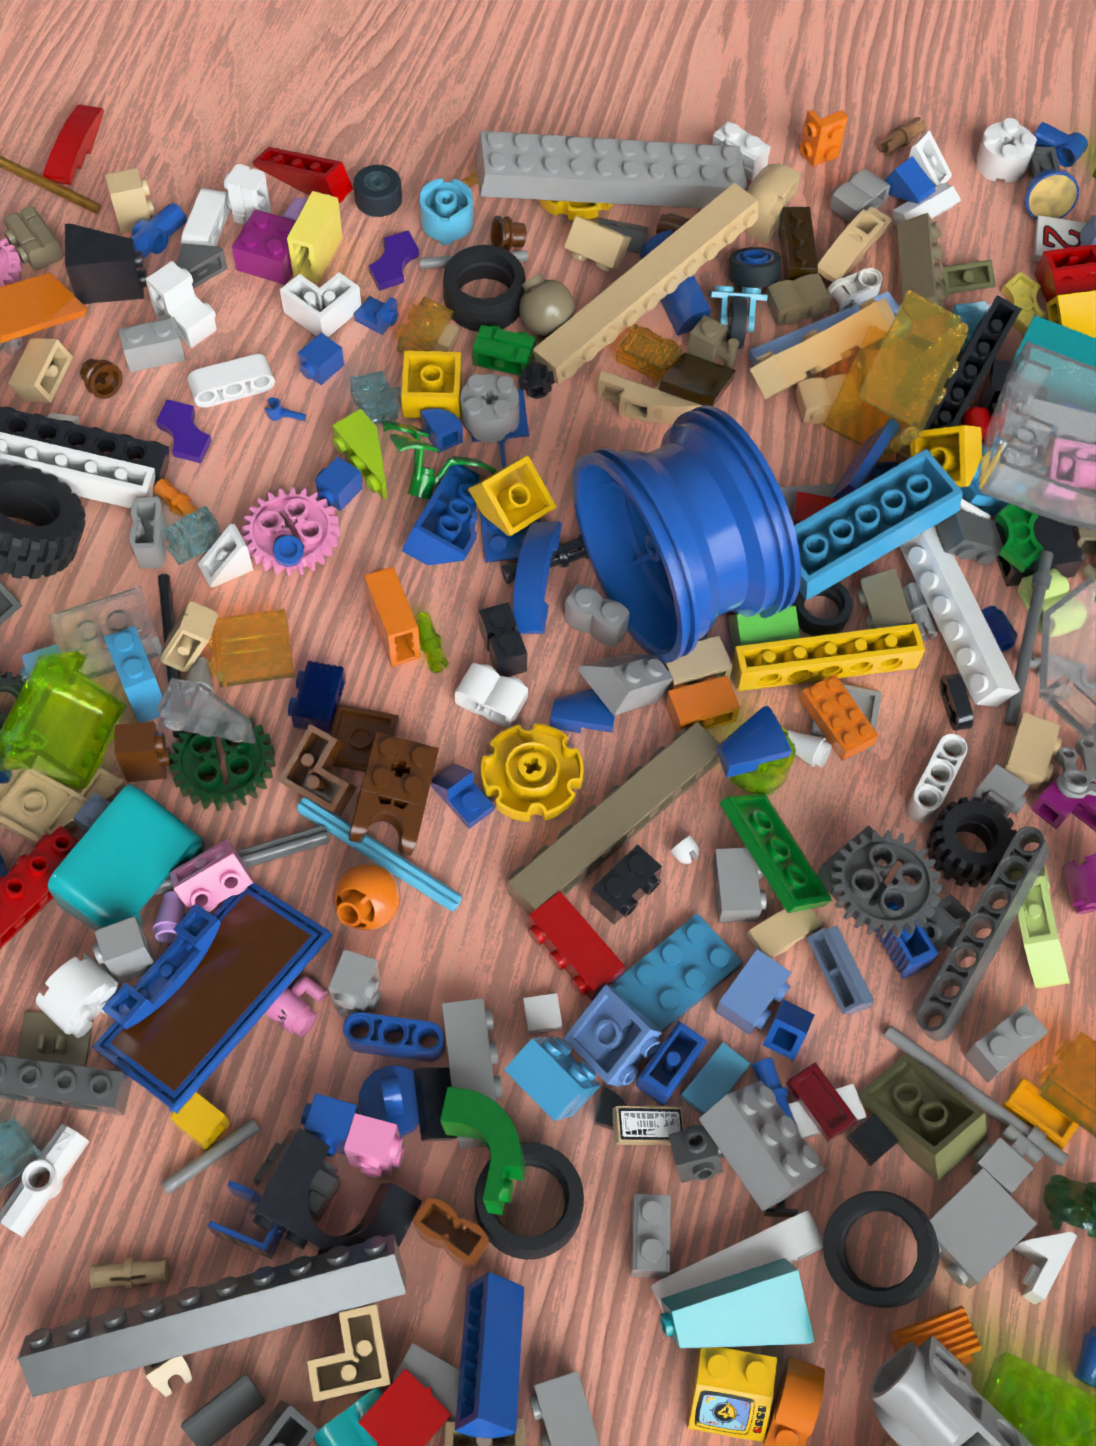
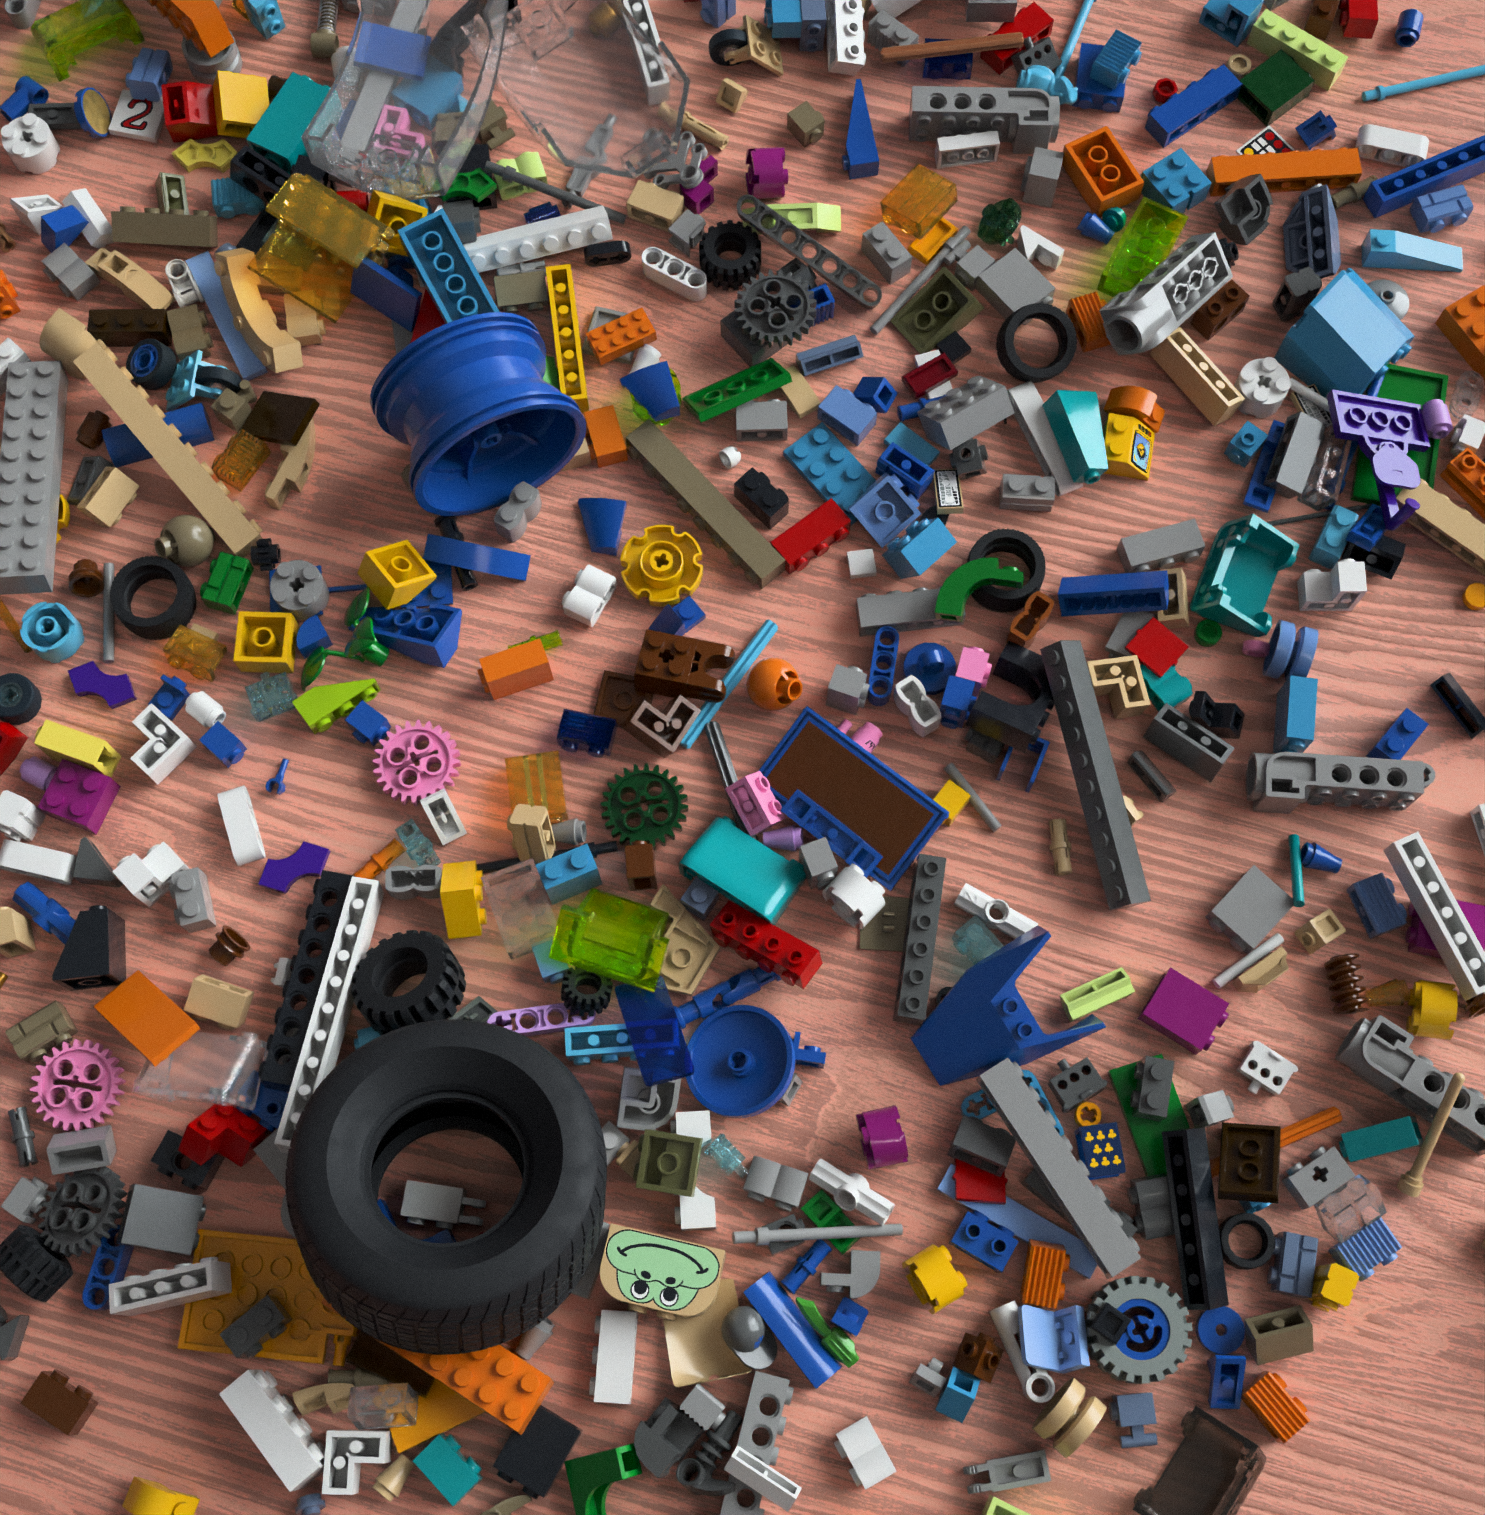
camera: 85 degrees left, 10 degrees up
(124, 568) = (460, 899): none -> yellow brick
(199, 710) = (605, 819): clear slope -> none
(288, 551) = (445, 757): blue tile -> none
(339, 1073) = (921, 710): none -> white brick
(360, 341) = (204, 709): none -> white brick
(431, 1090) = (934, 636): black tile -> none
(506, 647) = (526, 585): black piece -> none
(627, 680) = (582, 488): light grey slope -> none

